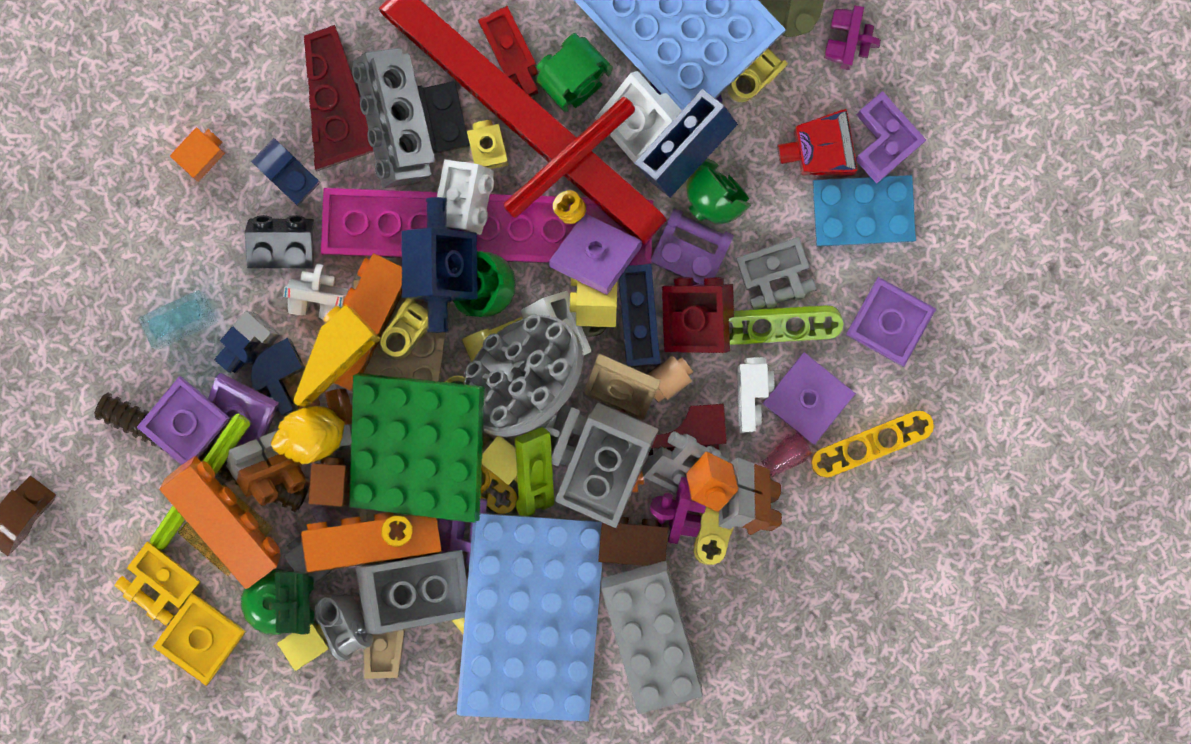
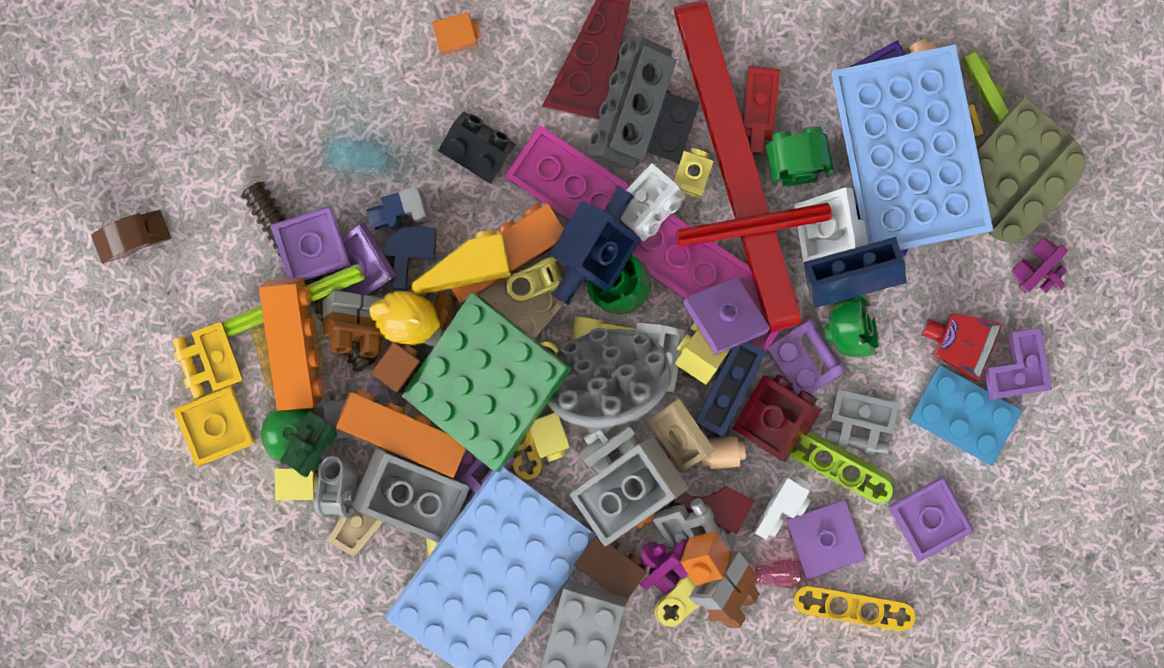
camera: 25 degrees right, 0 degrees up
(285, 171) = (517, 93): dark blue brick -> none
(314, 288) = (482, 202): white hips -> none
(407, 532) = (435, 446): yellow bush -> none
(534, 471) = (567, 460): lime plate -> none
(576, 211) = (733, 270): yellow bush -> none
(759, 74) = (949, 252): light yellow piece -> none

